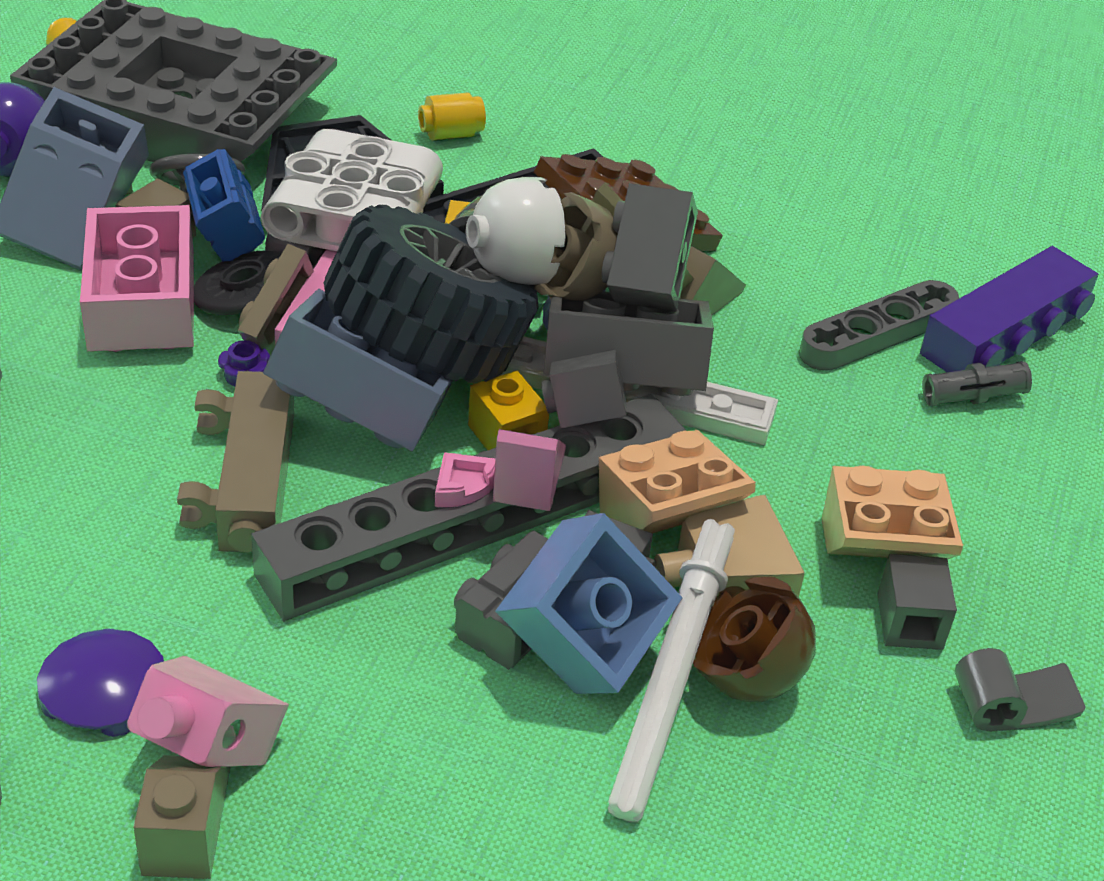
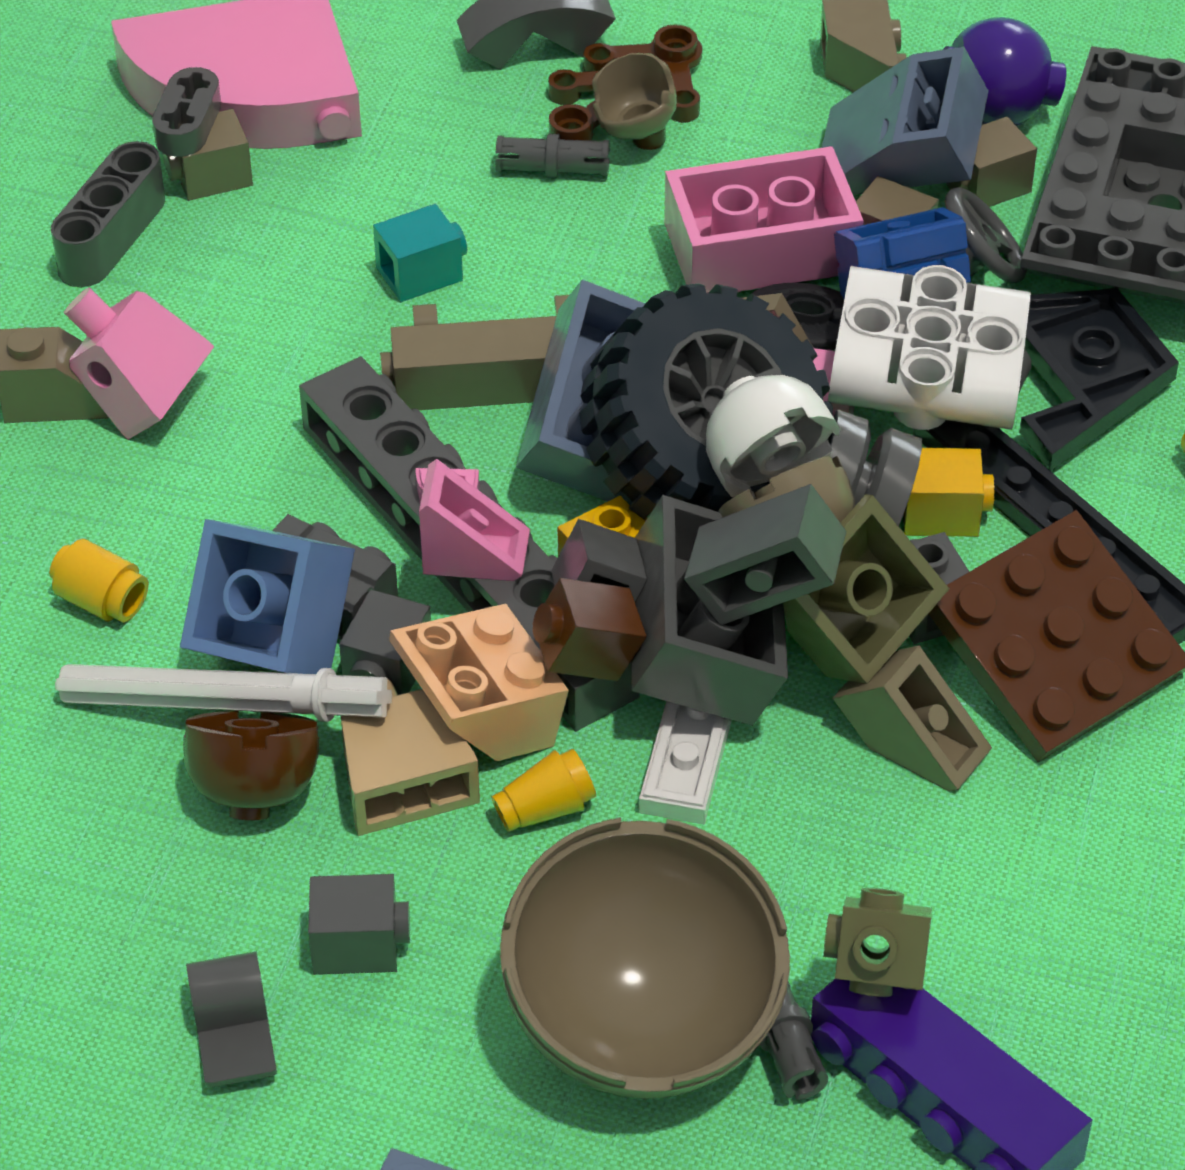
camera: 90 degrees right, 5 degrees up
(82, 502) = (419, 252): none -> teal brick
(96, 679) = (219, 308): dark purple dish -> none
(498, 773) = (98, 581): none -> yellow brick
(663, 393) = (588, 629): none -> reddish brown brick
(767, 468) = (545, 791): none -> yellow cone
(833, 343) = (865, 871): dark grey beam -> none
(889, 513) = (452, 885): light nougat slope -> none
(959, 286) = (872, 969): none -> olive brick
(980, 410) = (644, 957): none -> dark tan piece

